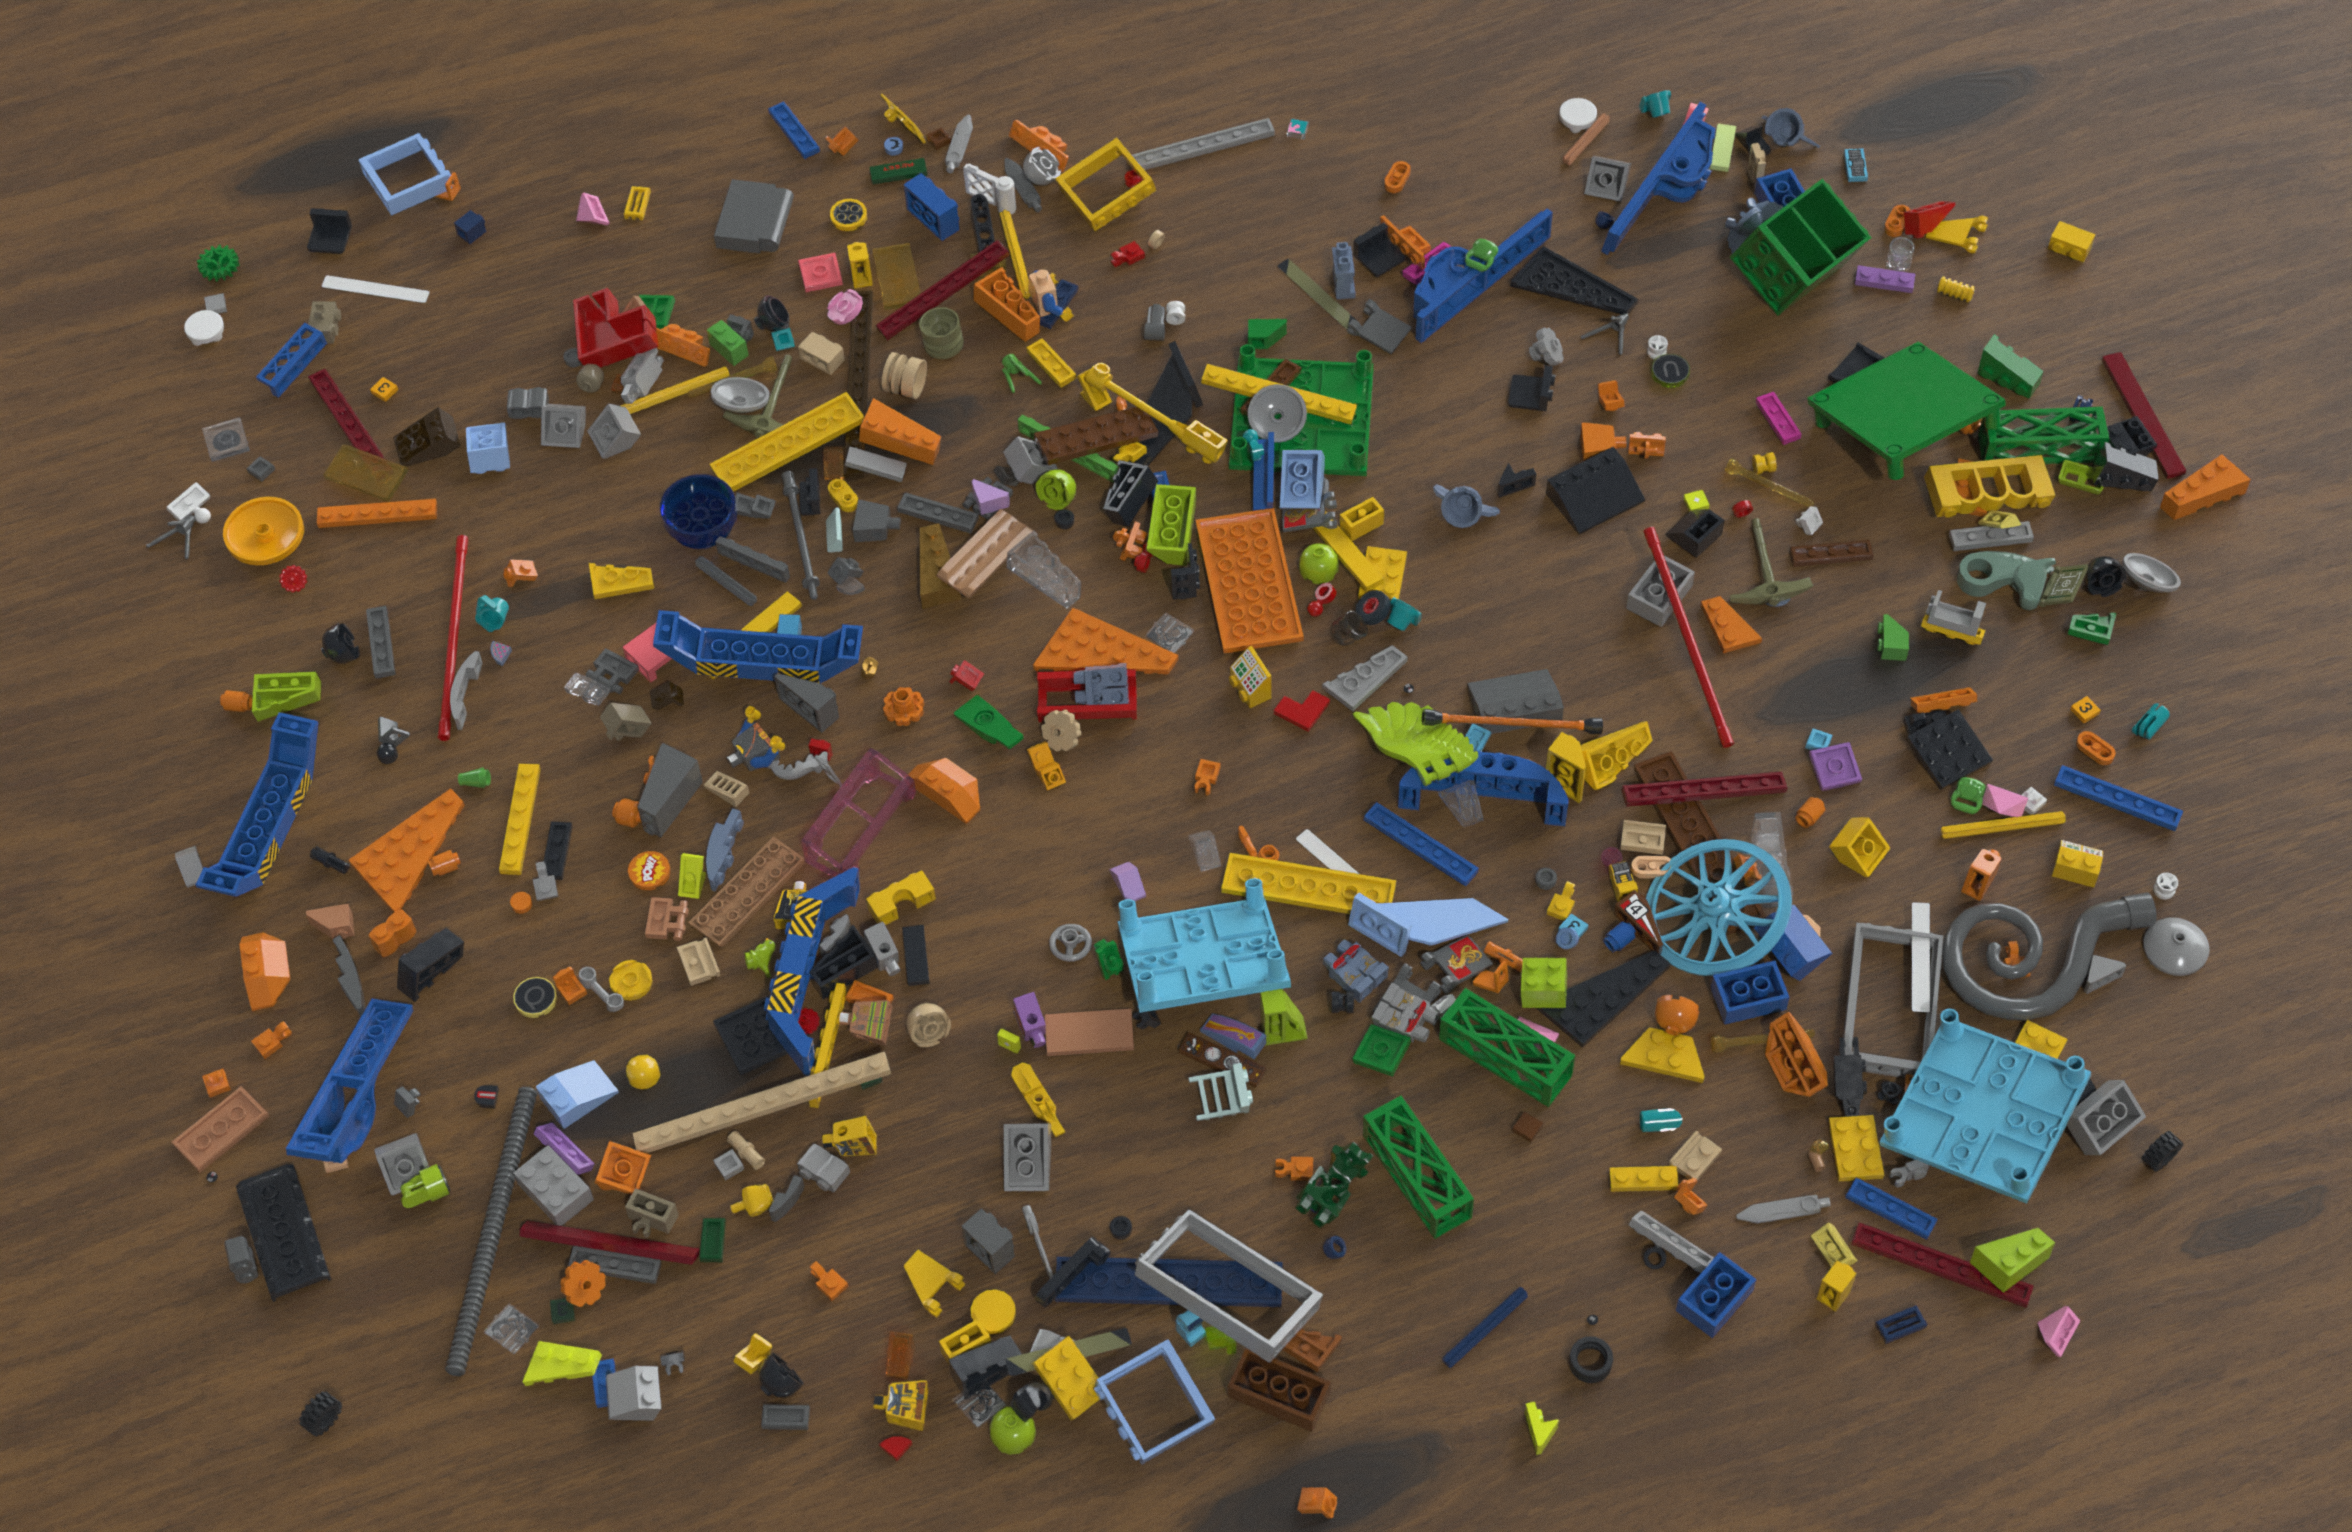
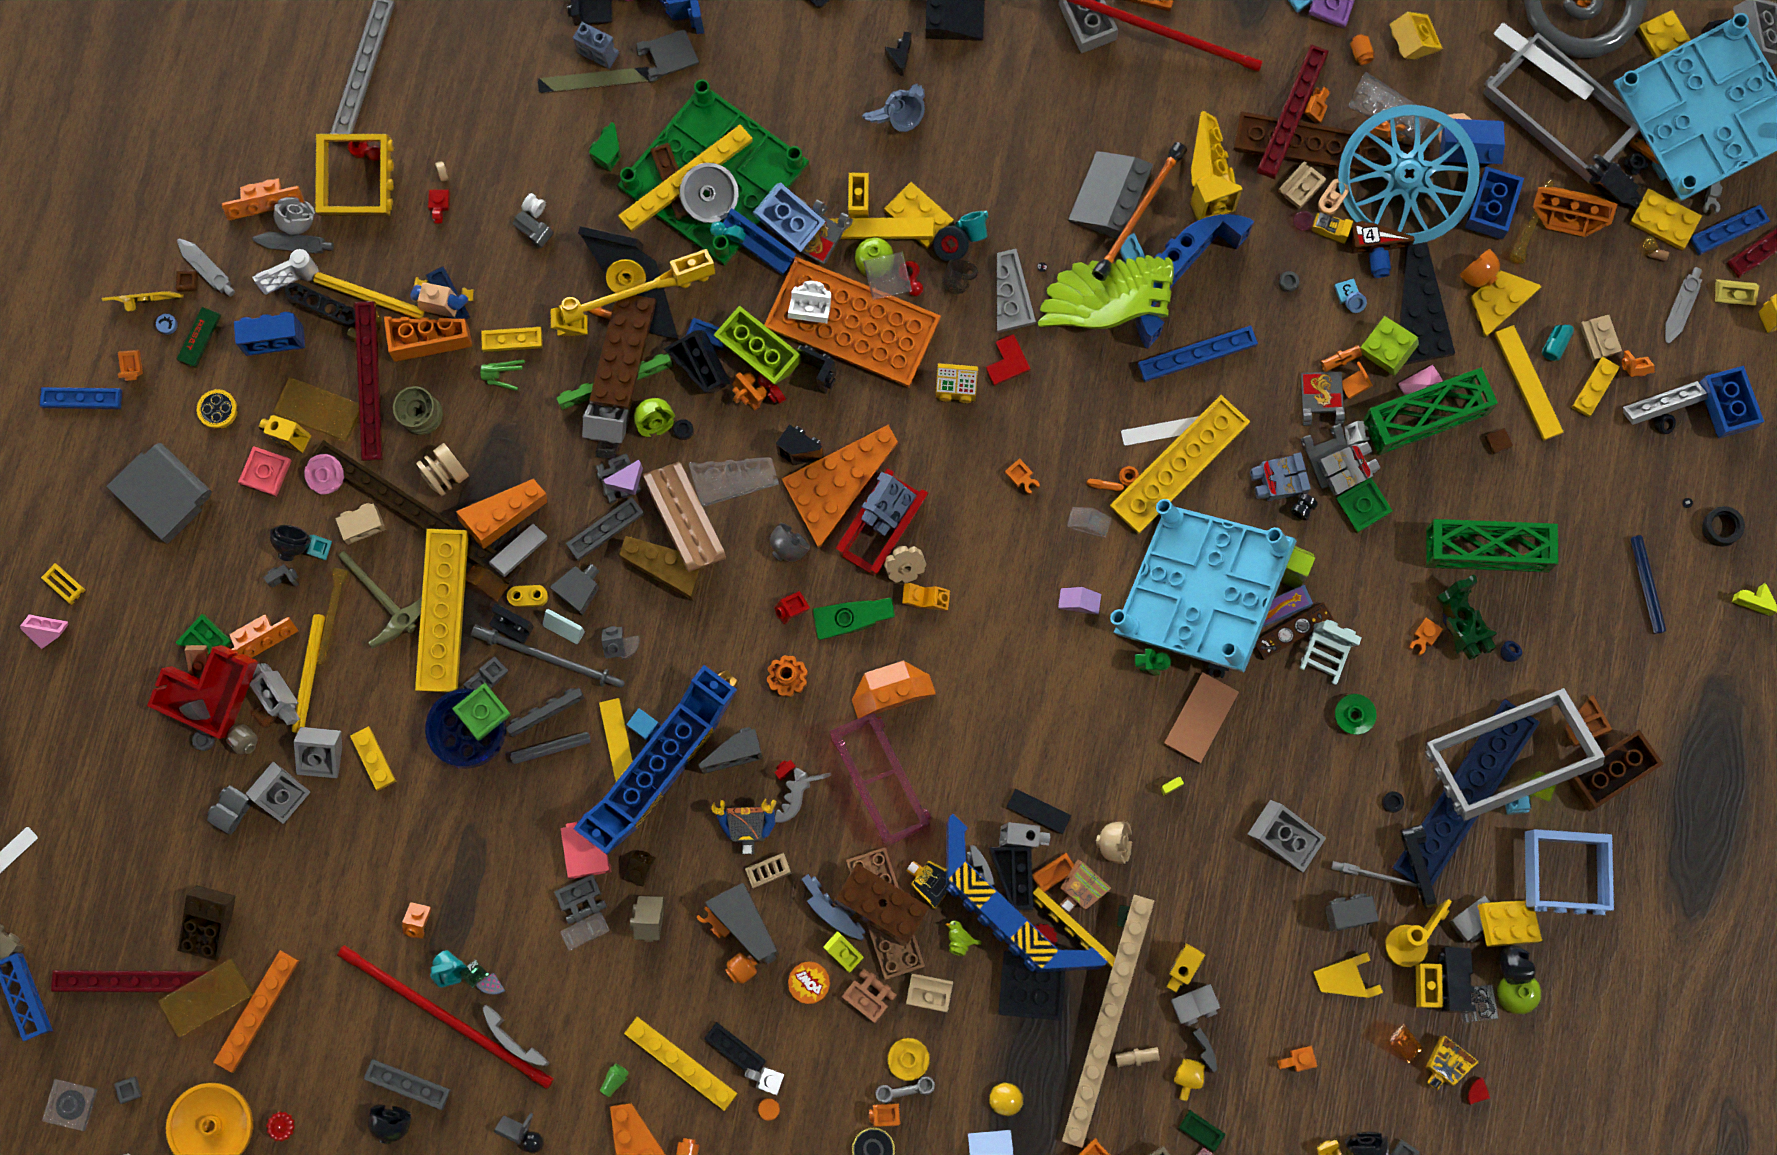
camera: 55 degrees left, 20 degrees up
(384, 389) = (116, 929): light orange tile -> none
(487, 448) = (254, 872): light blue slope -> none
(501, 633) = (473, 973): none -> clear green tile
(591, 332) = (195, 710): none -> dark grey brick
(615, 581) = (485, 841): yellow wing -> none
(634, 471) = (373, 758): none -> yellow plate
(718, 507) = (481, 711): none -> bright green tile
(727, 342) = (290, 597): bright green brick -> none
(728, 1164) = (1142, 1079): light grey plate -> none
(740, 394) = (353, 616): light grey dish -> none
(747, 874) = (862, 896): none -> reddish brown brick
(913, 888) = (977, 773): yellow arch -> none
(1000, 1305) = (1416, 935): none -> yellow door
(1018, 640) = (788, 544): none -> flat silver cylinder
(1030, 1019) = (1159, 757): medium lavender torso -> none
(1031, 1089) = (1224, 795): yellow piece -> none
(1069, 932) = (1107, 674): light grey piece -> none
(1087, 1346) = (1488, 895): olive sticker -> none
(1106, 597) = (798, 447): none -> black slope
(1130, 452) = (657, 335): yellow plate -> none
(1160, 397) = (618, 282): none -> yellow dish
(1169, 633) = (858, 417): clear piece -> none
(1177, 1140) = (1363, 707): none -> green dish
(1238, 536) = (810, 302): none -> white slope
(1305, 576) = (887, 275): none -> clear plate
(1317, 1501) = (1718, 801): orange bracket -> none
(1420, 921) = (1272, 398): light blue piece -> none
(1463, 803) = (1187, 296): clear wing -> none
(1562, 904) = (1320, 286): yellow plate -> none
(1603, 1121) = (1528, 383): none -> yellow tile
(1725, 806) = (1316, 105): none -> orange plate

